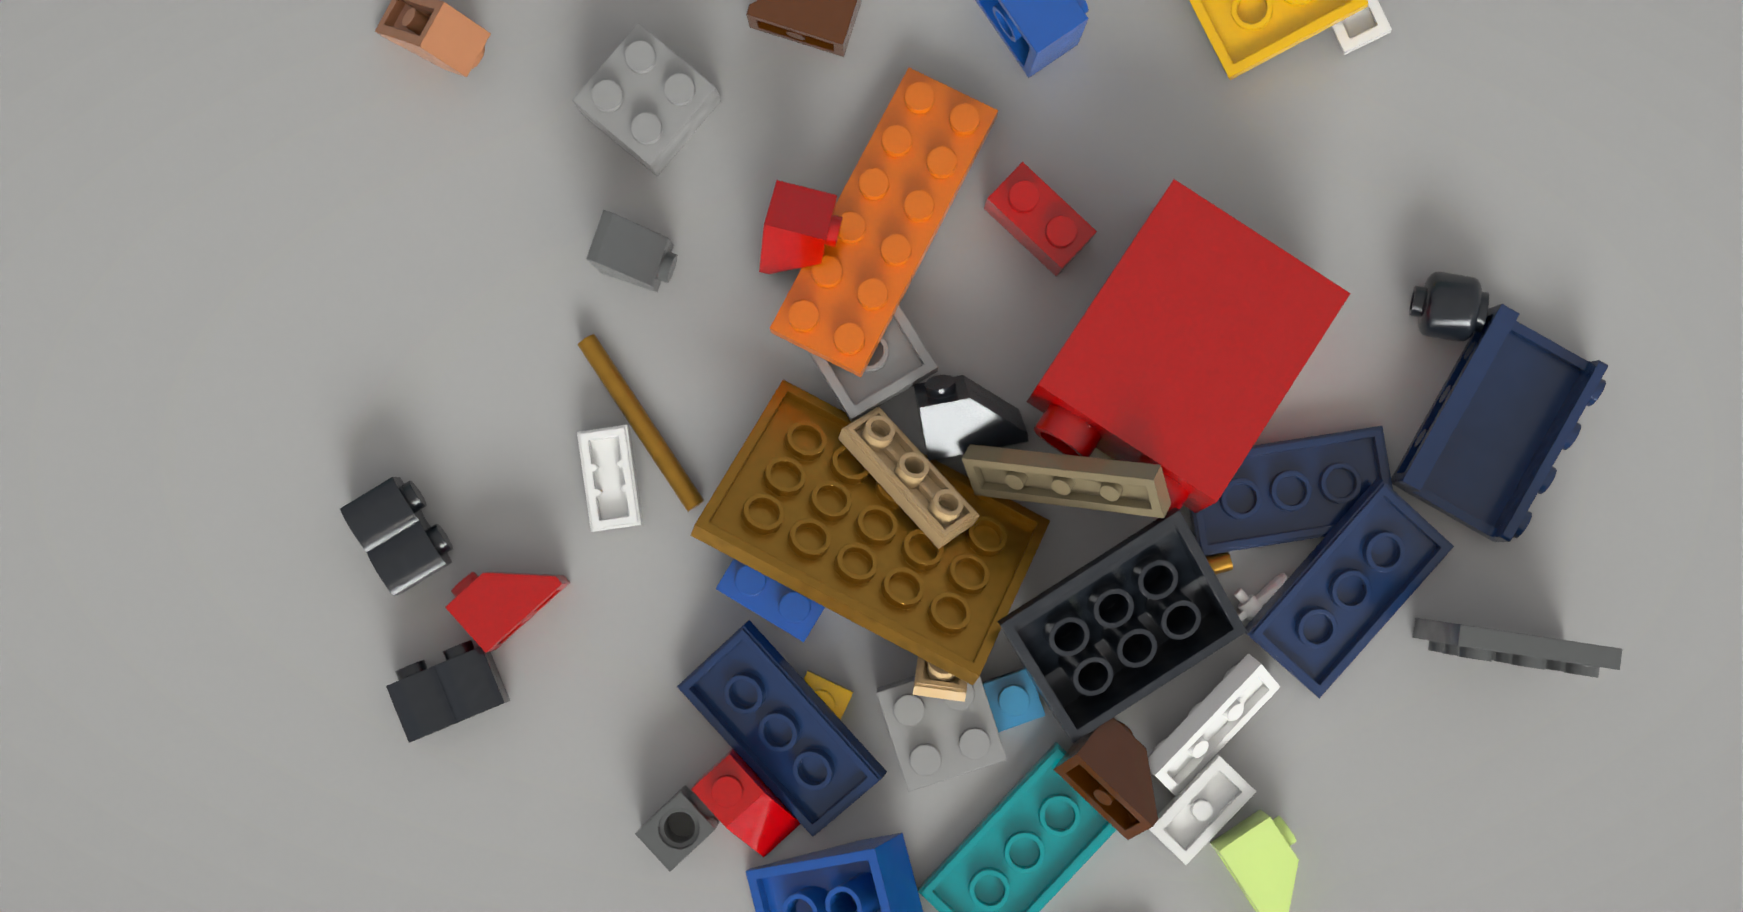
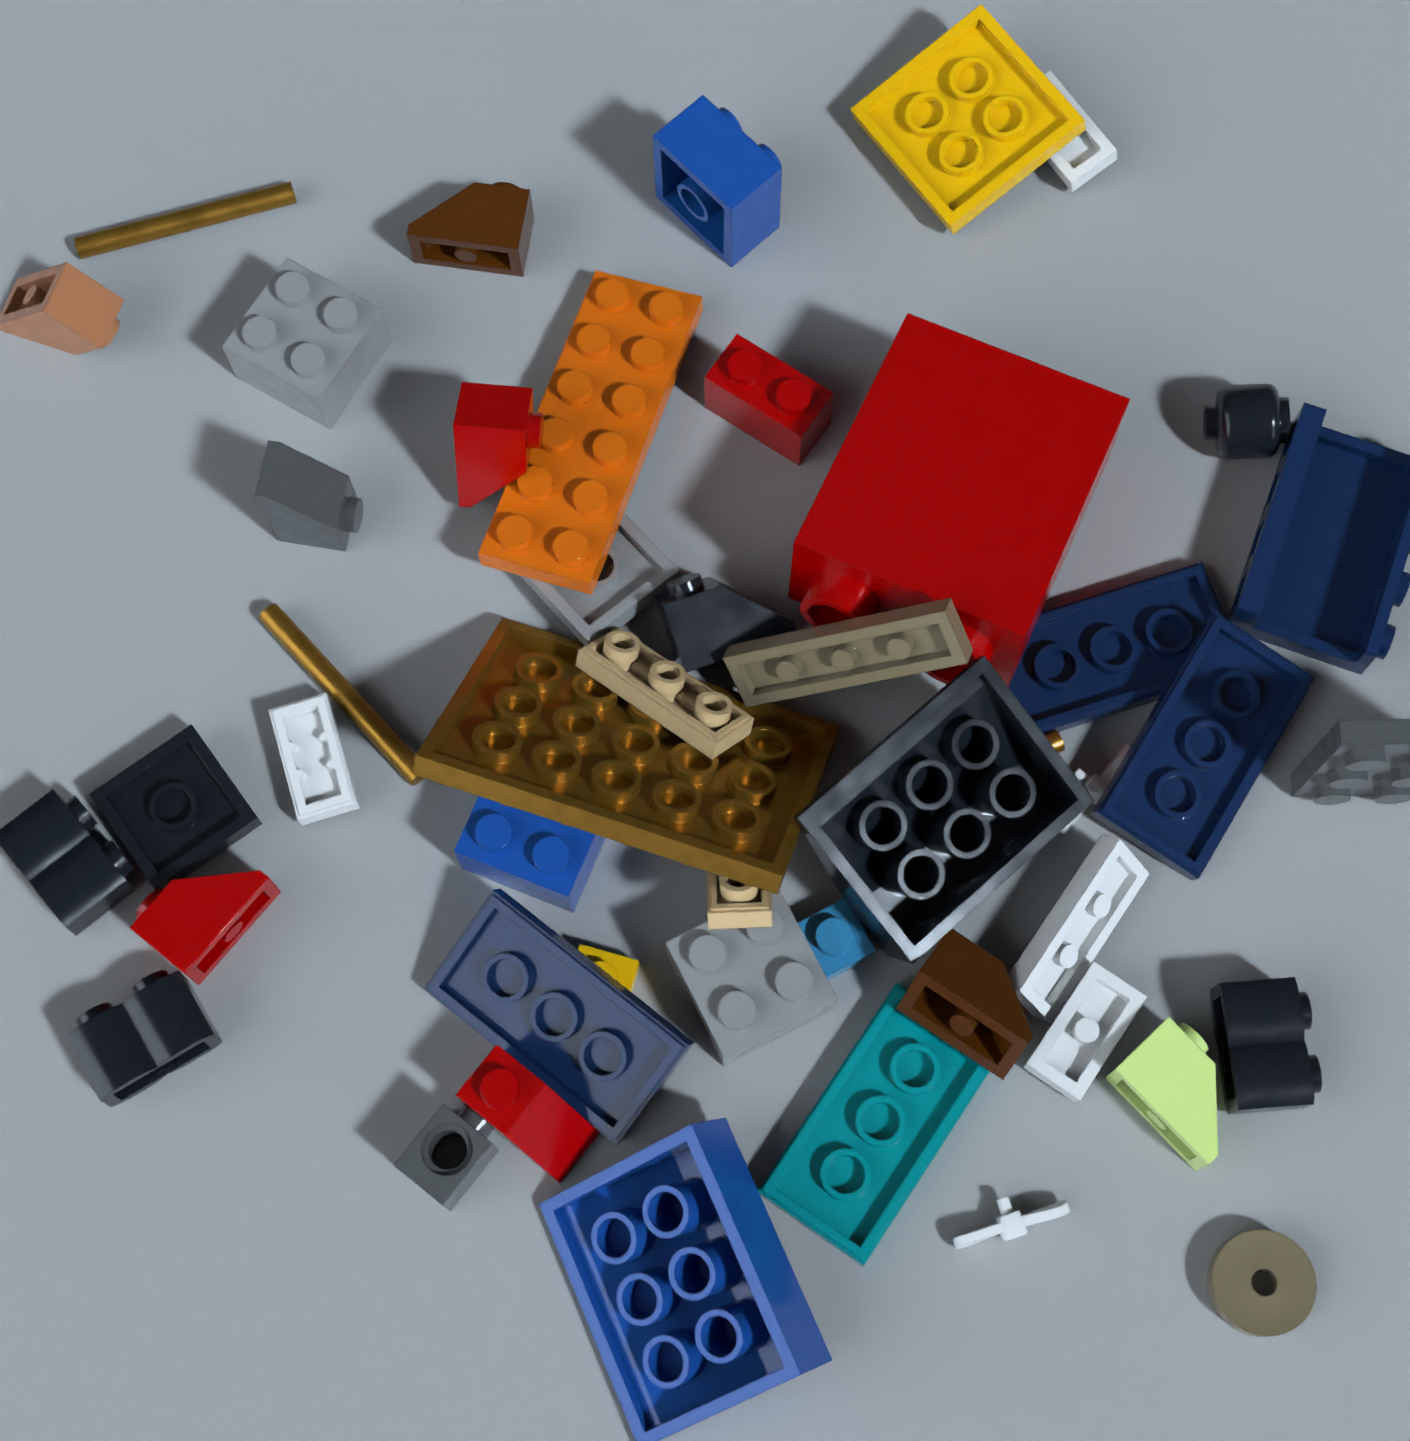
camera: 10 degrees left, 15 degrees down
(491, 503) = (175, 808): none -> black plate
(1341, 845) = (1264, 1045): none -> black brick

